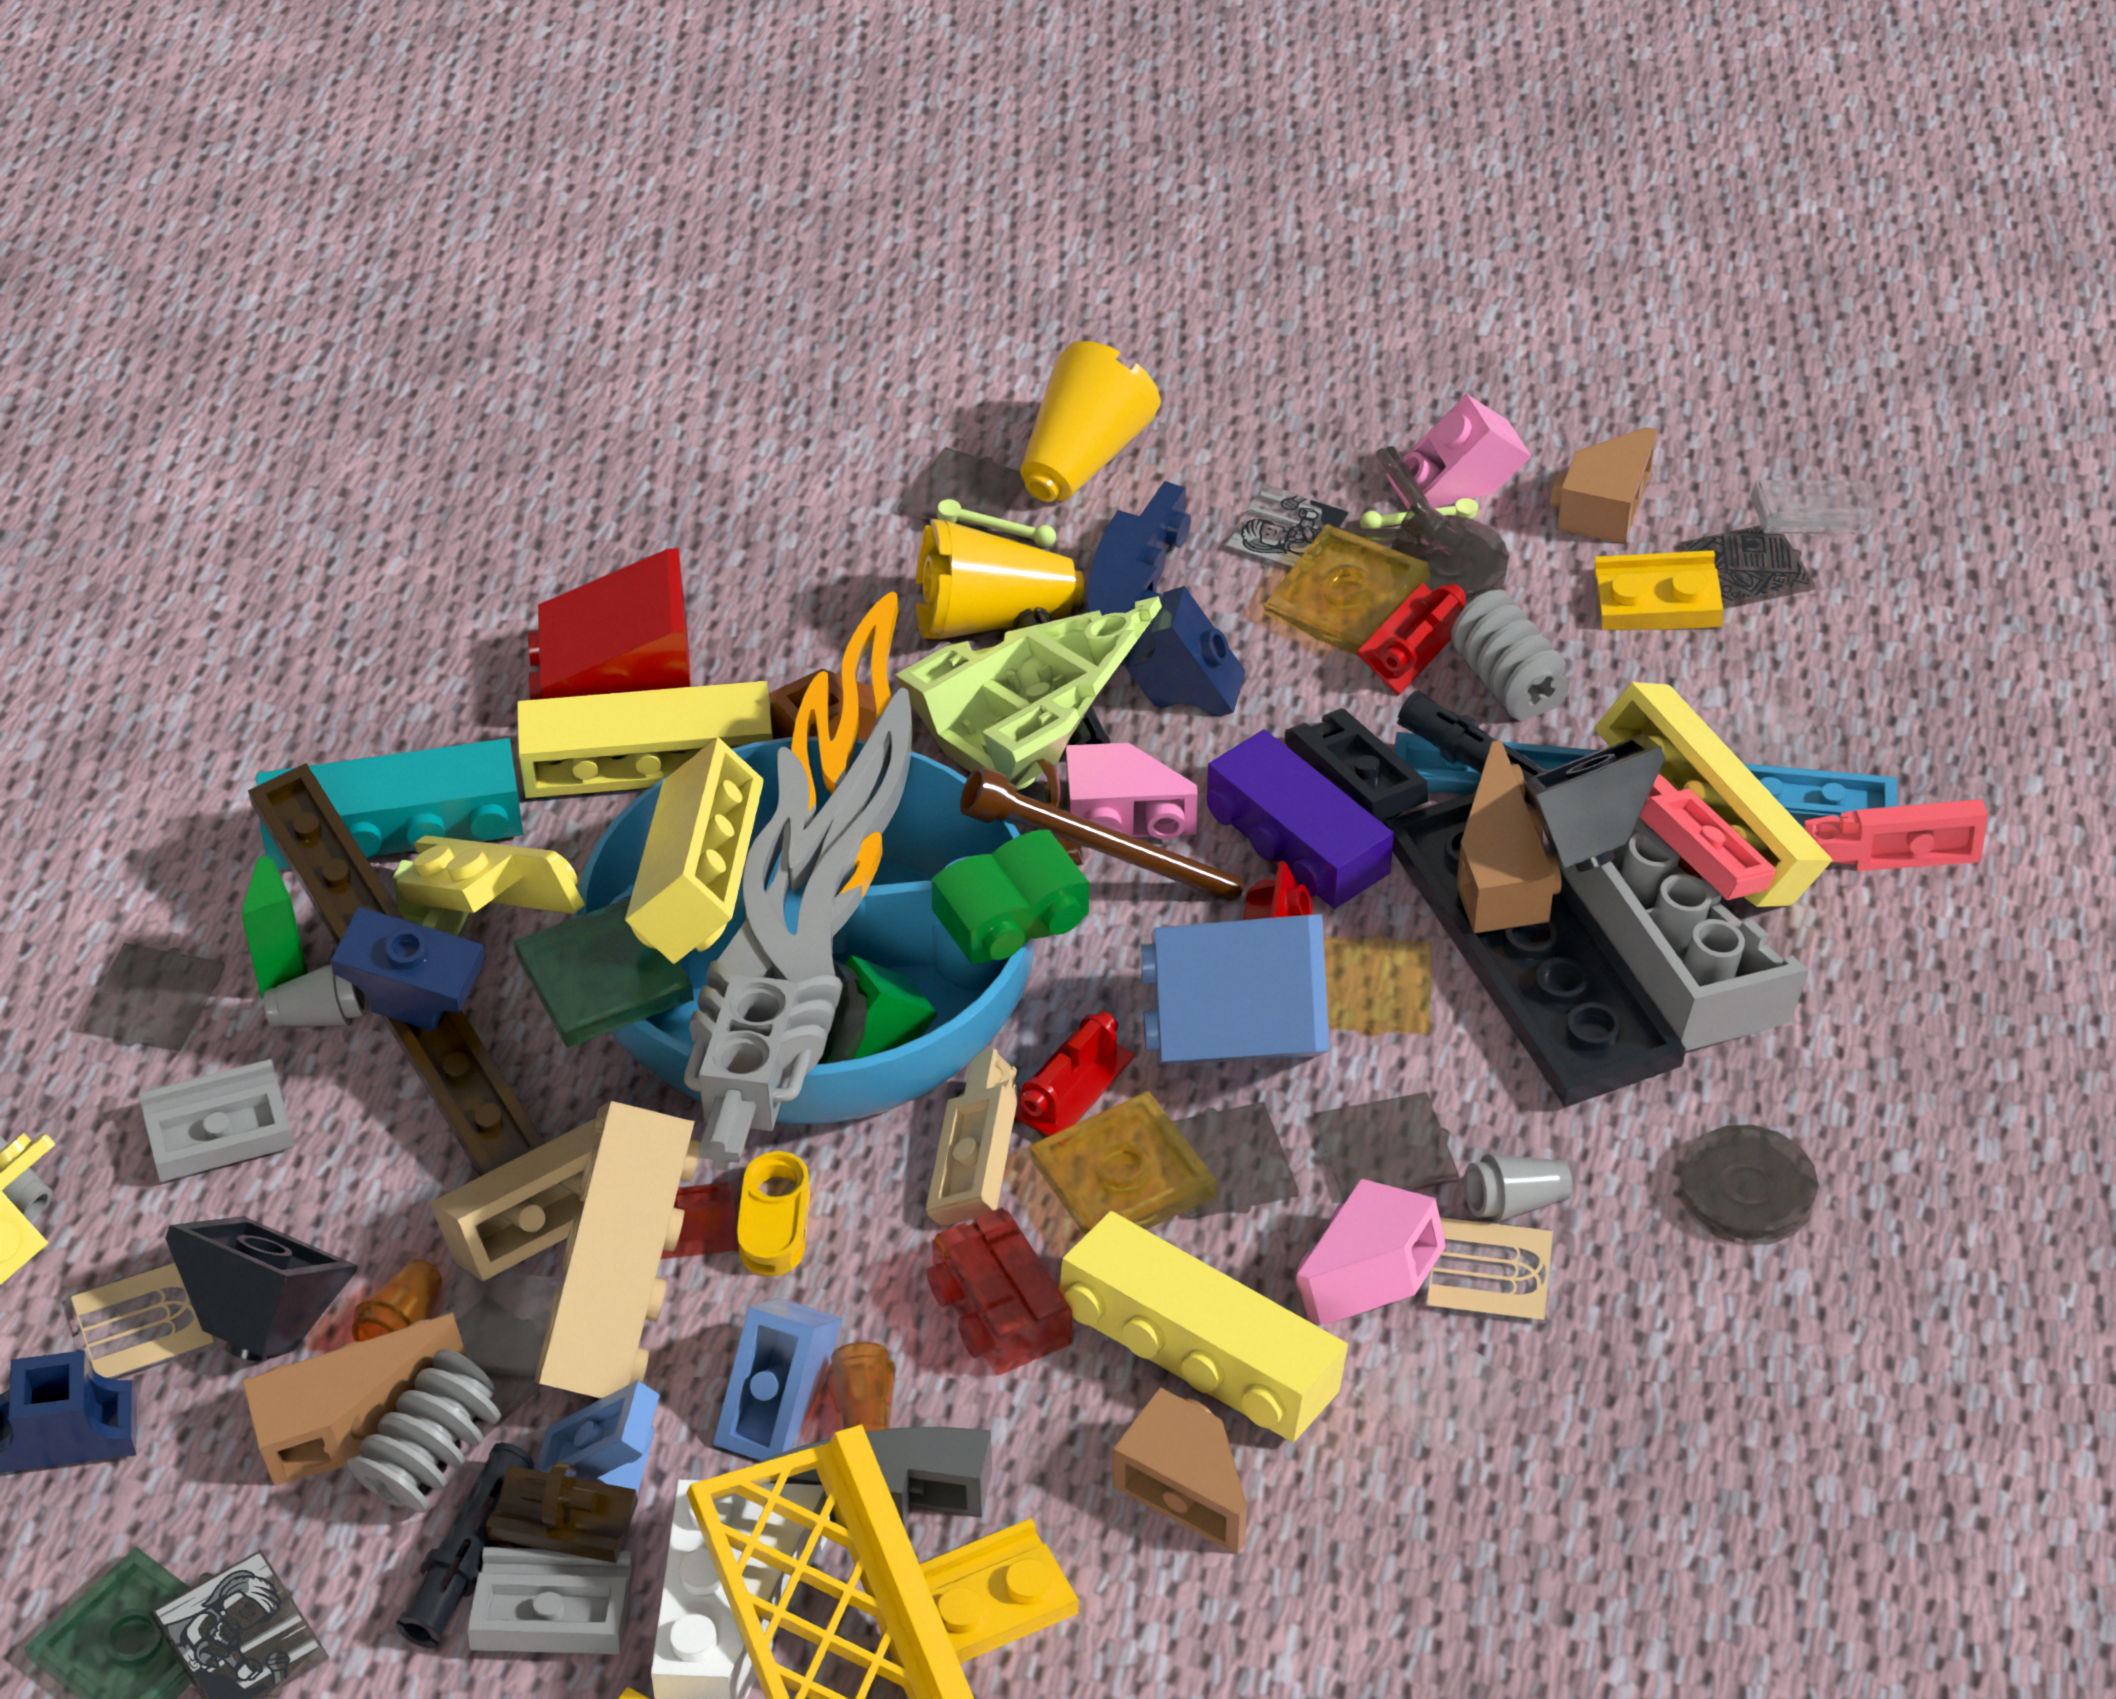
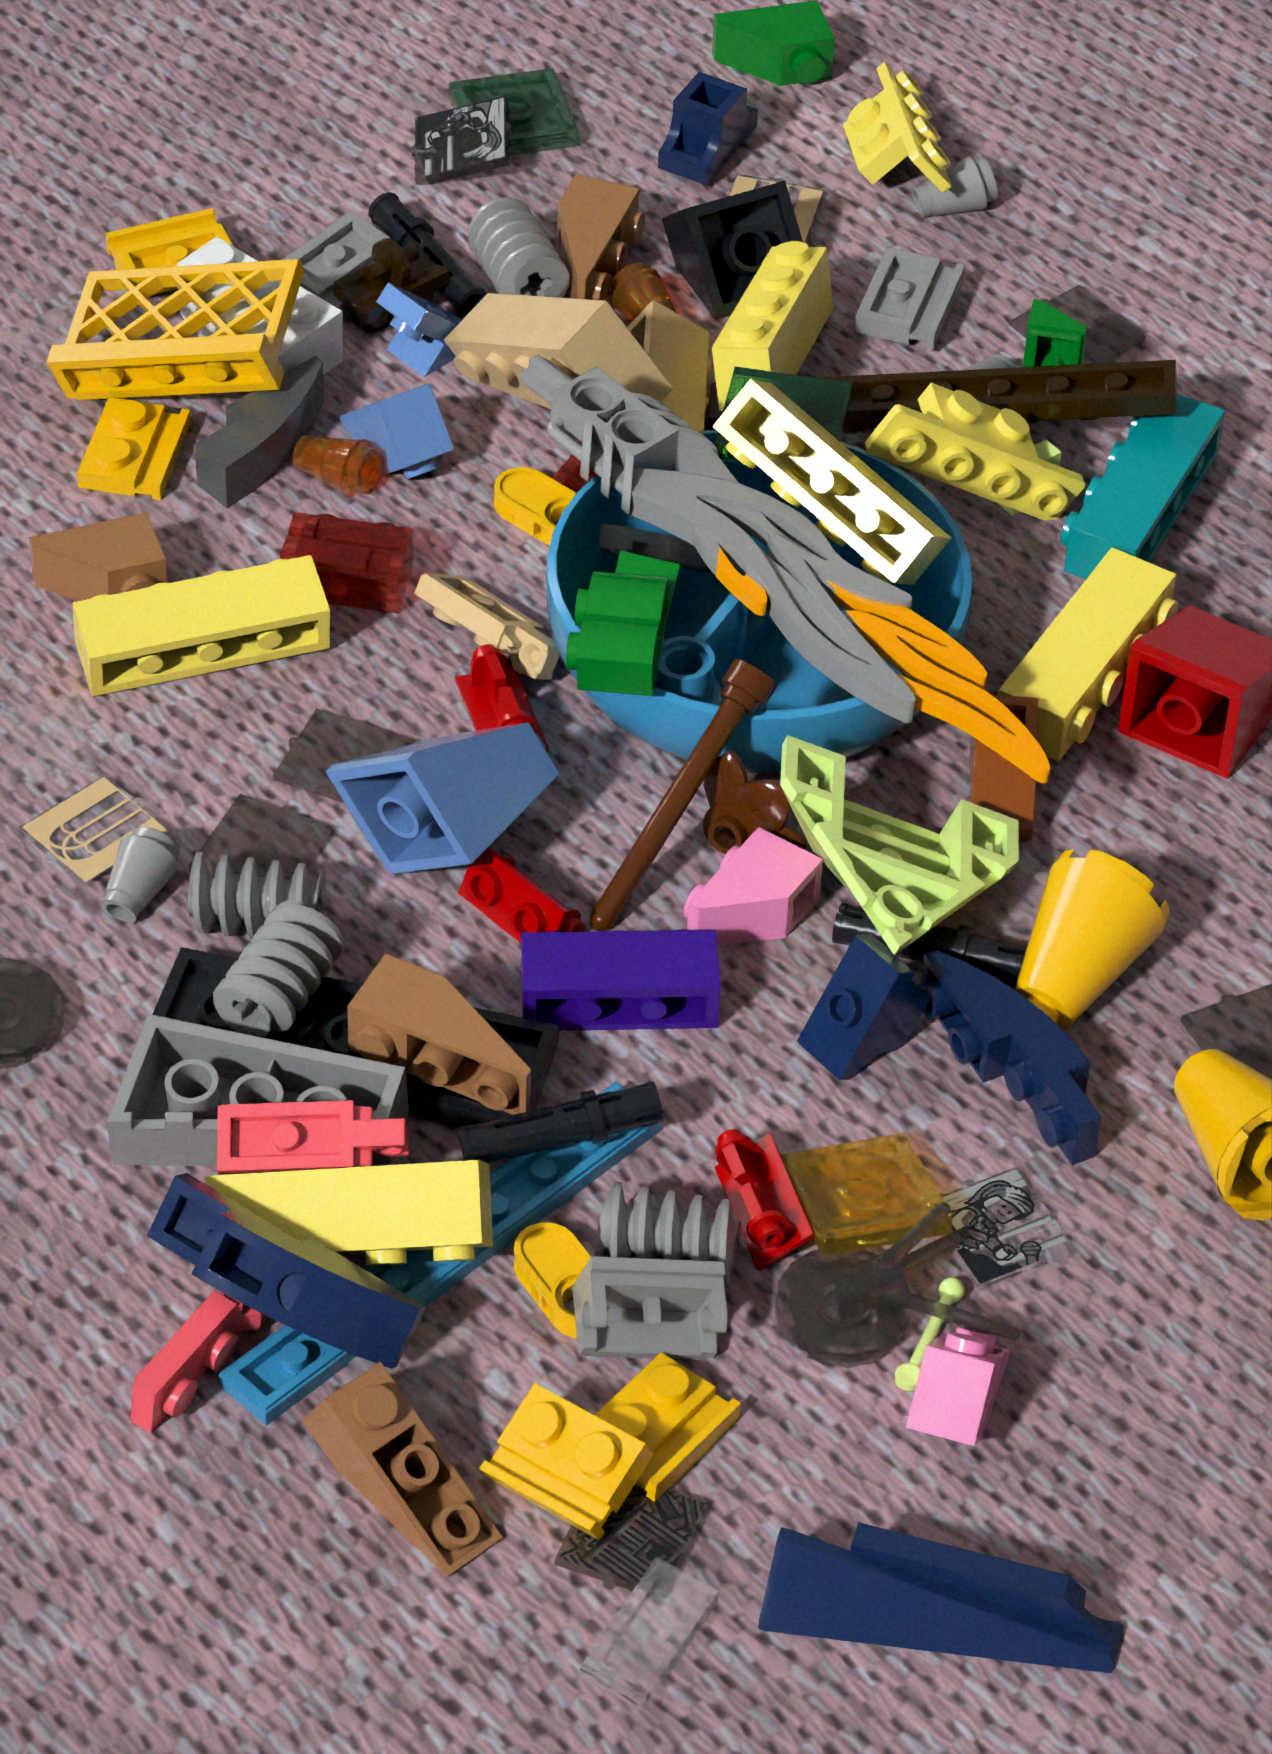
camera: 125 degrees right, 0 degrees up
(395, 1138) = (776, 315): none -> light yellow brick
(407, 967) = (901, 354): dark blue brick -> none
(951, 511) = (1223, 1000): yellowish green hinge -> none
(1125, 1164) = (385, 685): clear yellow plate -> none
(1358, 764) = (641, 1047): black plate -> none
(1371, 1253) = (166, 753): bright pink slope -> none
(1378, 985) = (418, 932): clear yellow piece -> none
(1464, 1077) = (246, 894): none -> light grey piece
(1547, 963) = (278, 970): none -> light grey piece
(1586, 622) = (649, 1307): none -> light grey hinge
(1588, 703) = (547, 1265): none -> yellow piece
(1595, 800) = (389, 1041): slope -> none
(1605, 486) = (814, 1465): medium nougat slope -> none
(1633, 406) = (933, 1600): none -> dark blue wedge
(1751, 597) = (567, 1460): none -> yellow plate
(1816, 786) = (284, 1277): none -> dark blue slope
(1856, 683) = (401, 1469): none -> medium nougat slope

